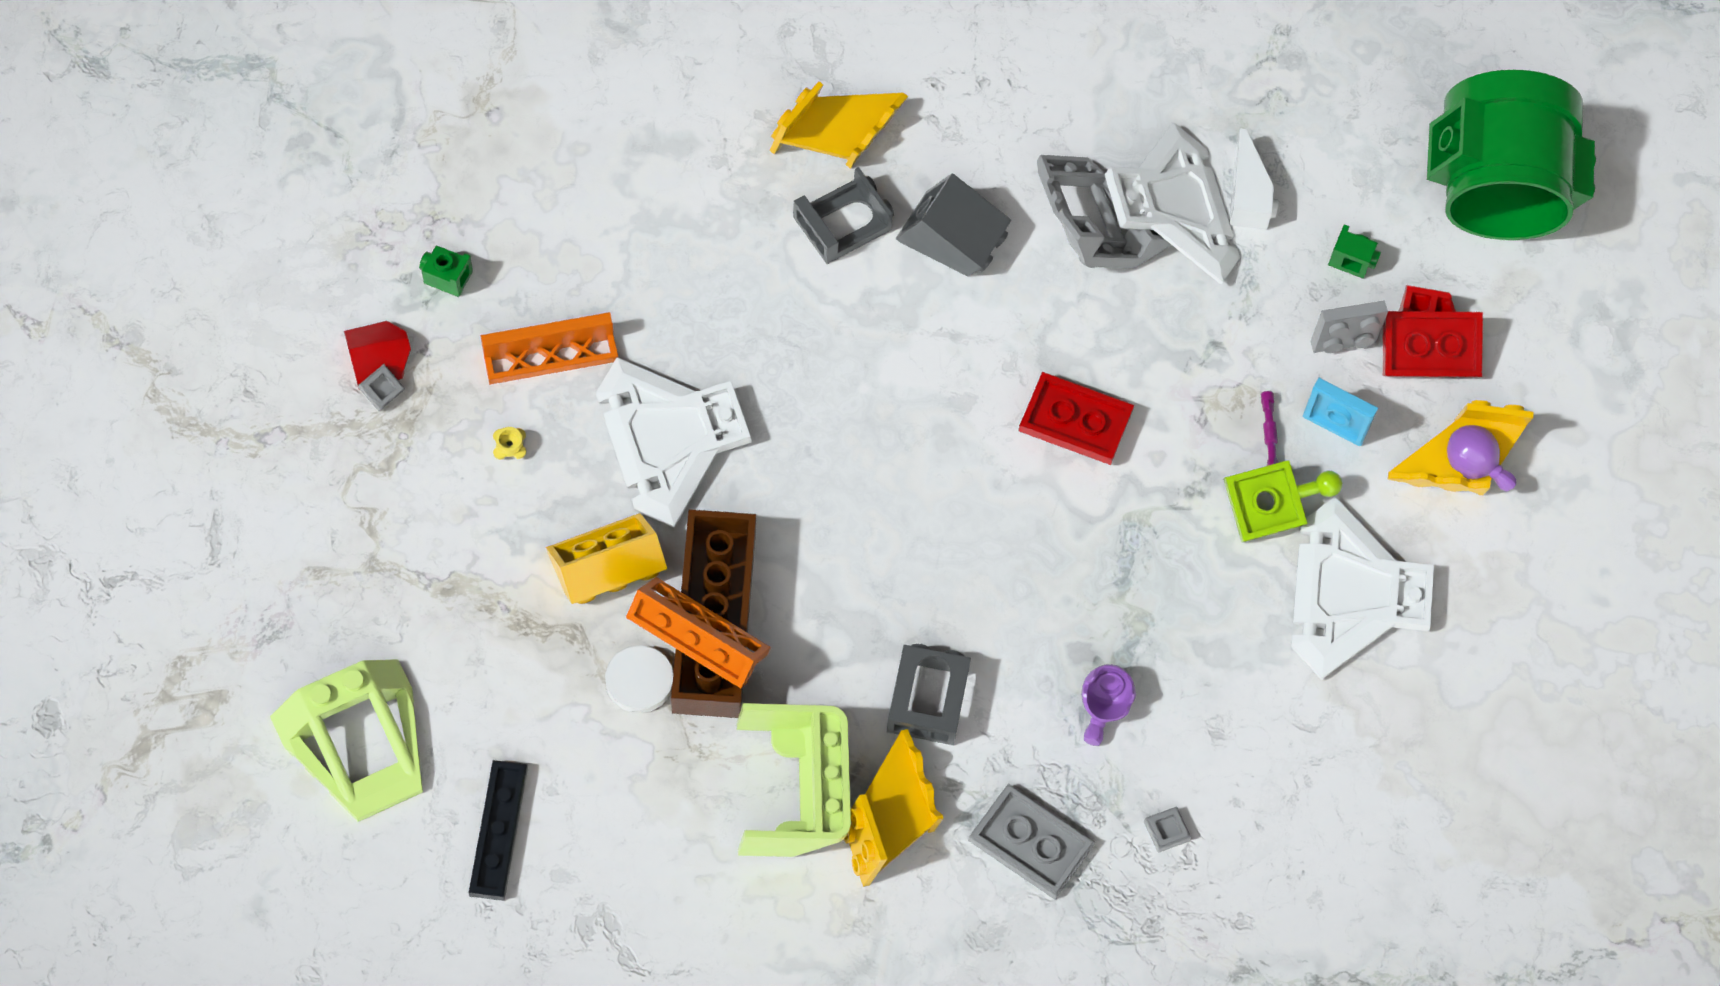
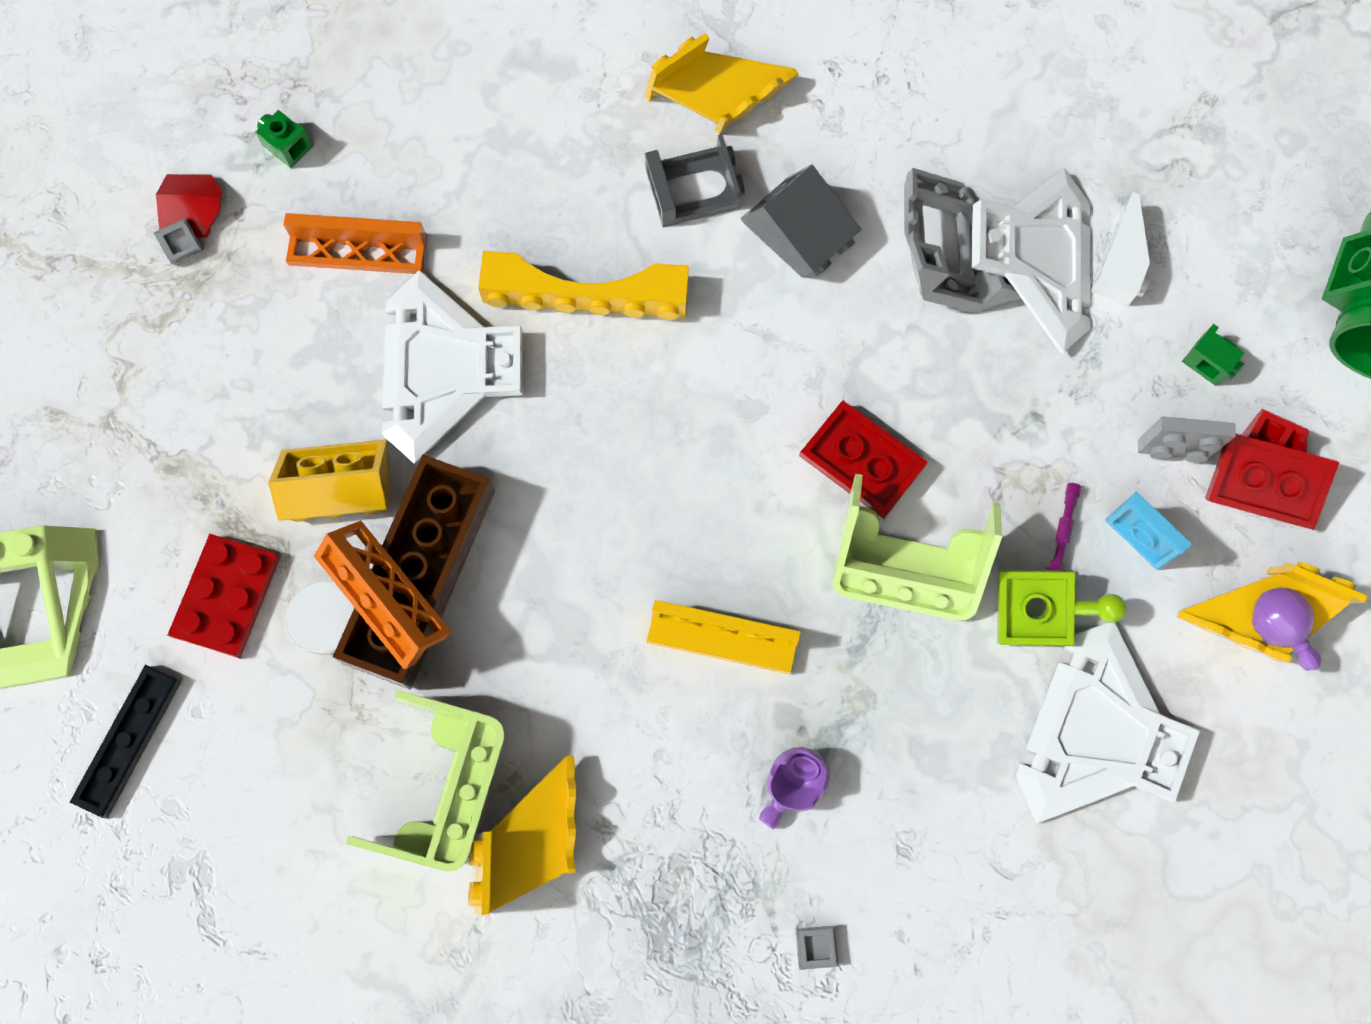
camera: 20 degrees right, 10 degrees up
(513, 435) = (276, 325): light yellow plate -> none
(541, 685) = (224, 596): none -> red plate
(712, 344) = (655, 291): none -> yellow arch
(922, 725) = (648, 705): dark grey panel -> none
(1003, 597) = (723, 637): none -> yellow fence
(1031, 841) = (667, 918): light grey tile -> none
(1149, 504) = (910, 572): none -> yellowish green windscreen

